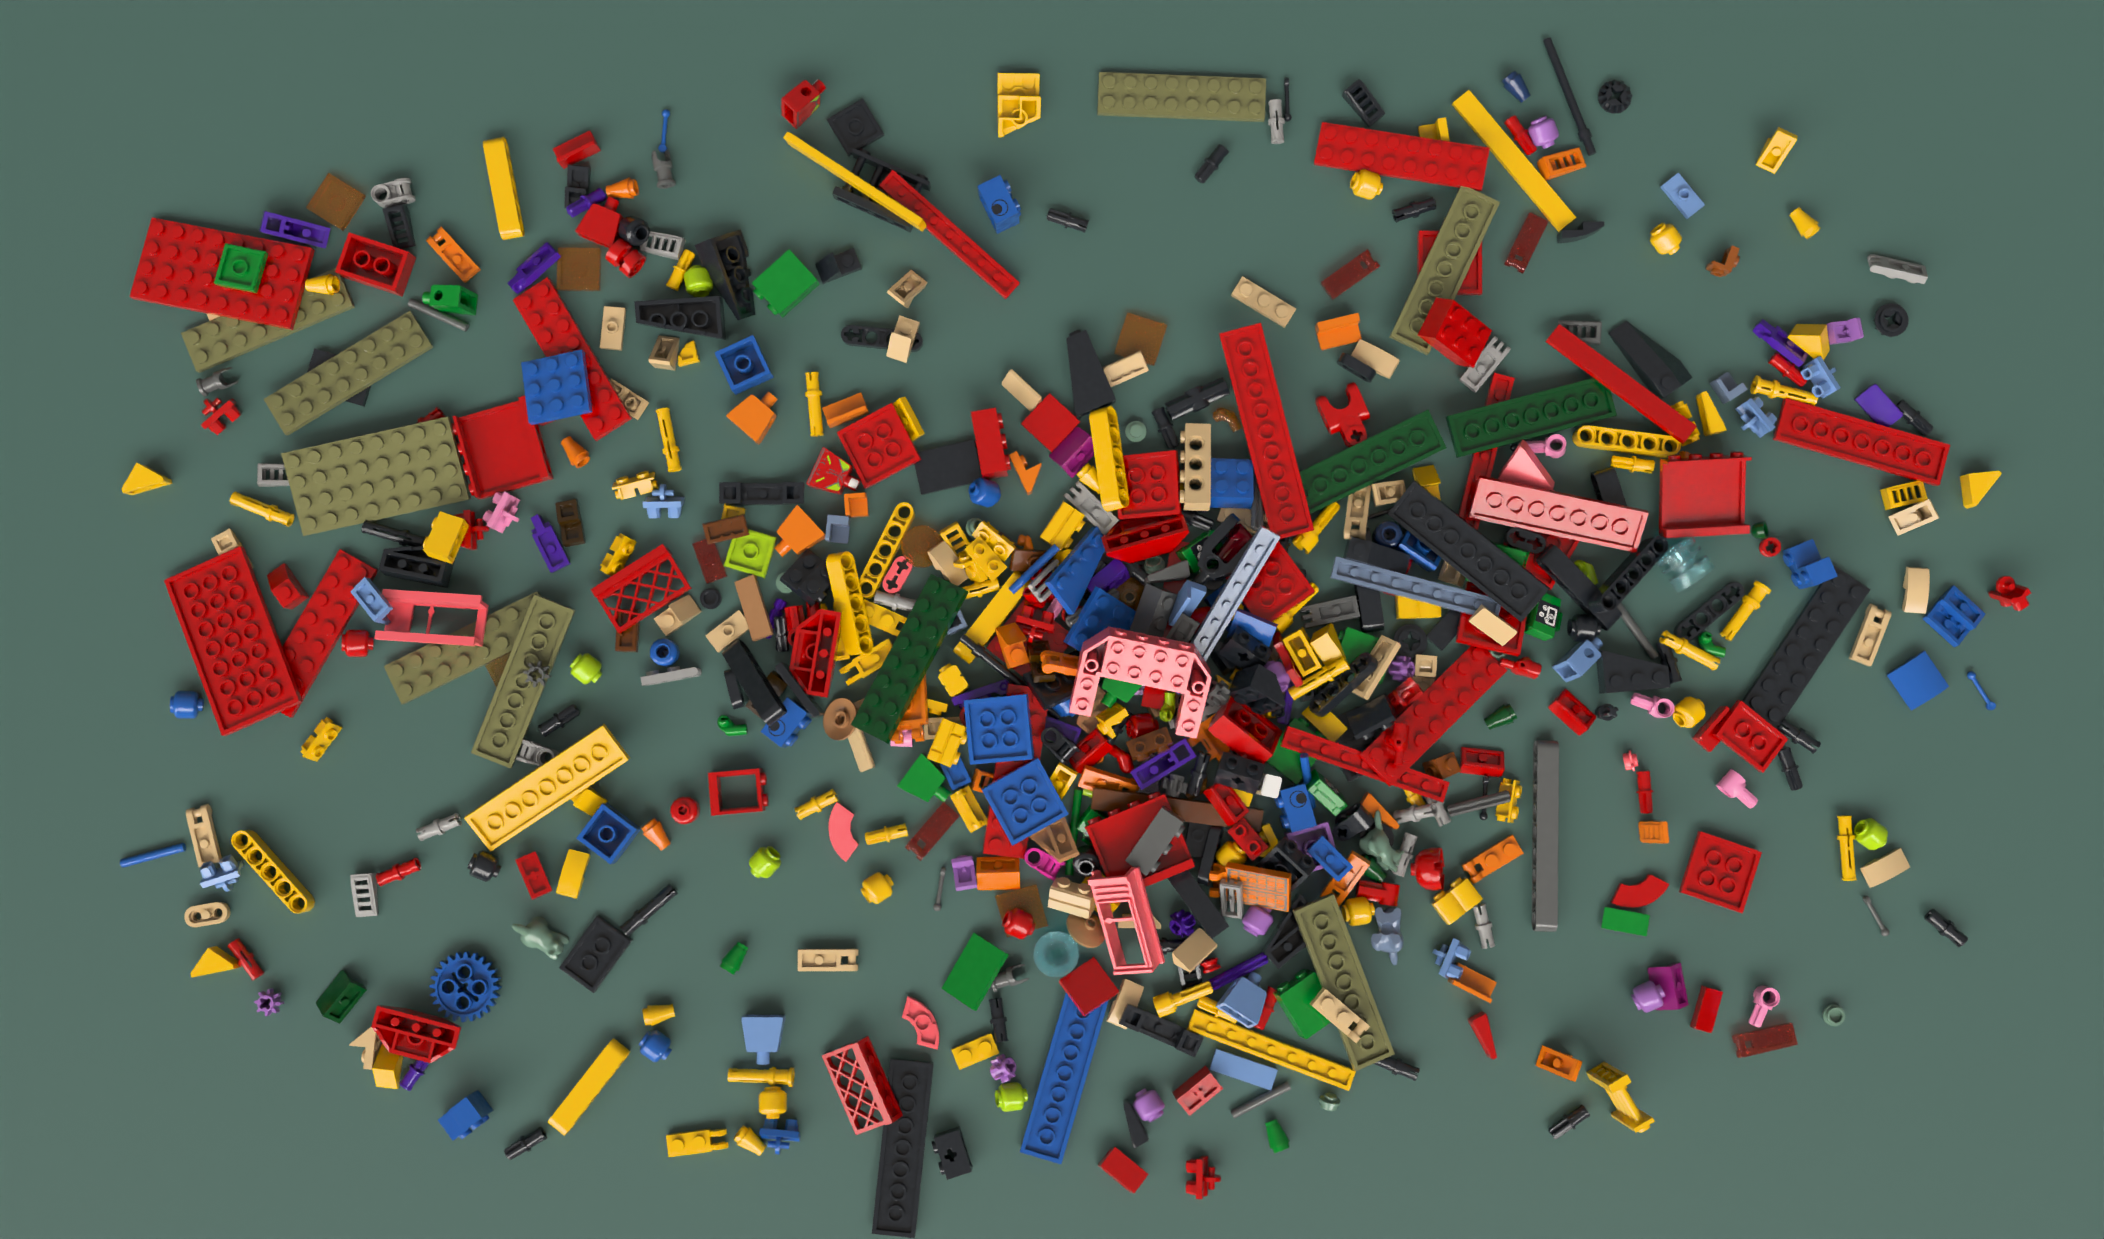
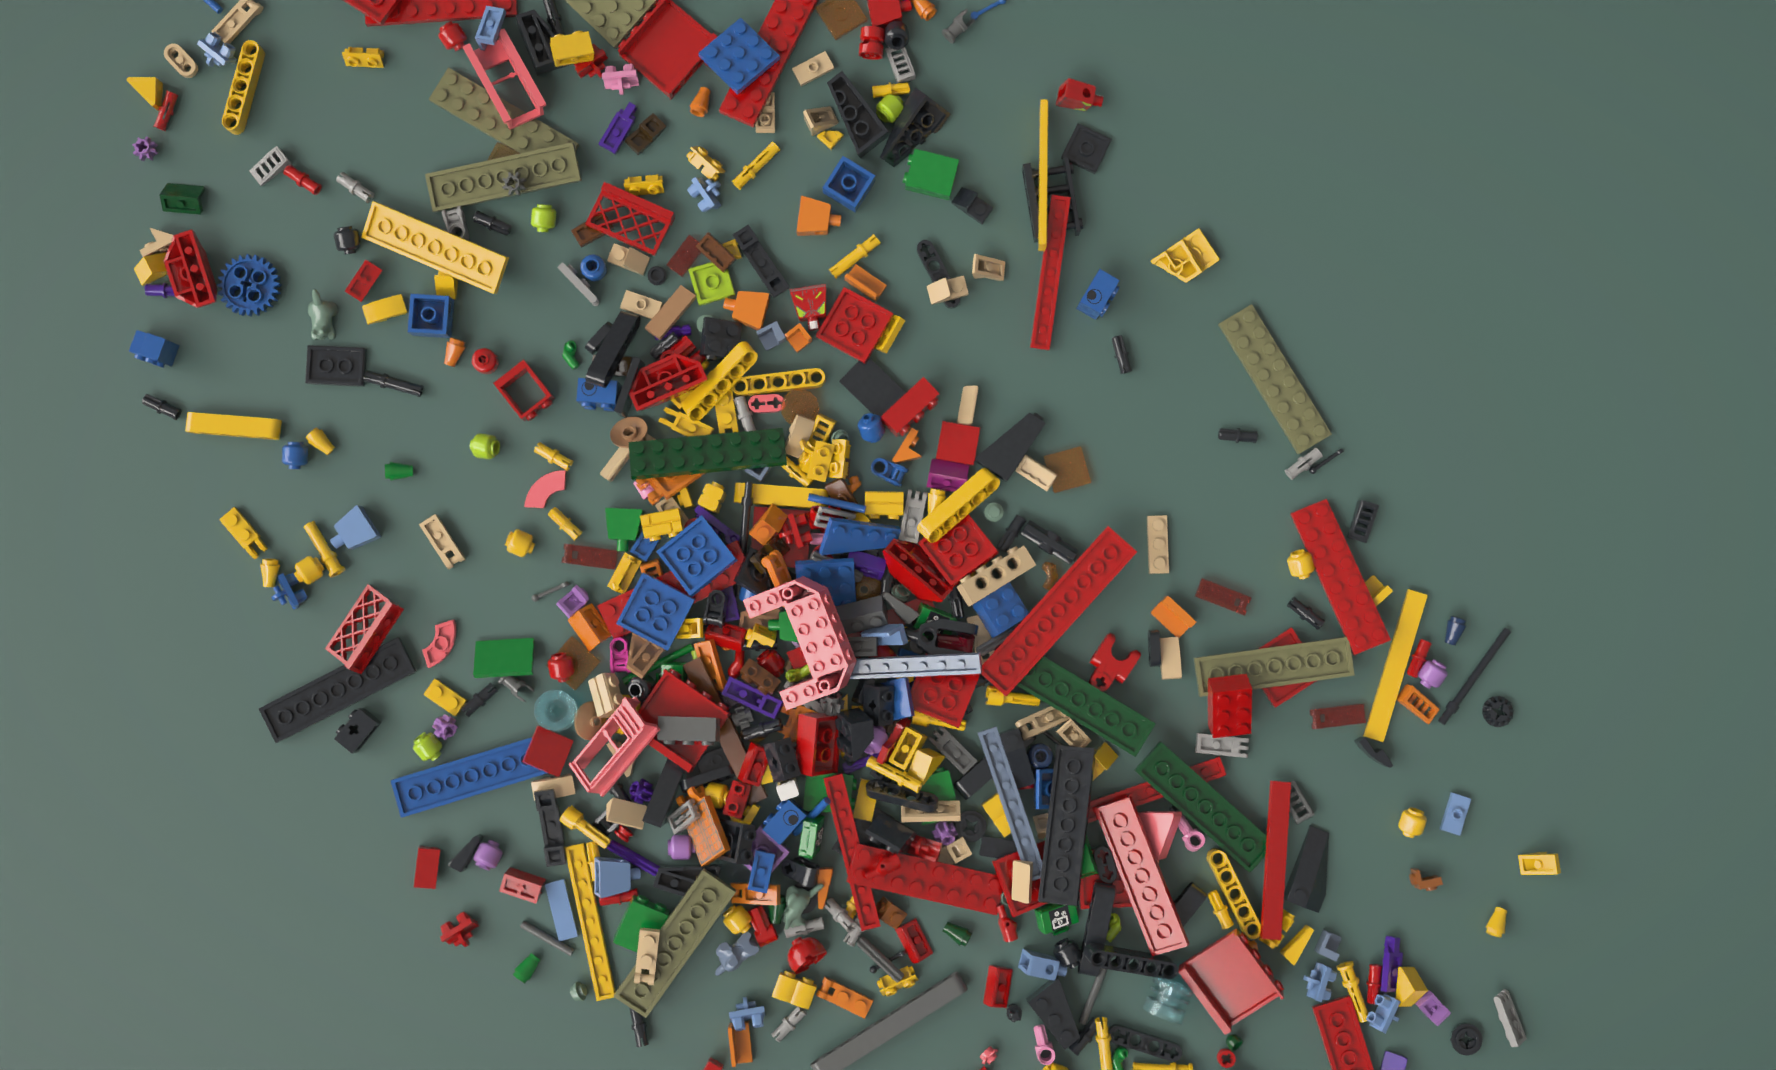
camera: 50 degrees right, 0 degrees up
(1036, 502) = (890, 472): none -> blue piece

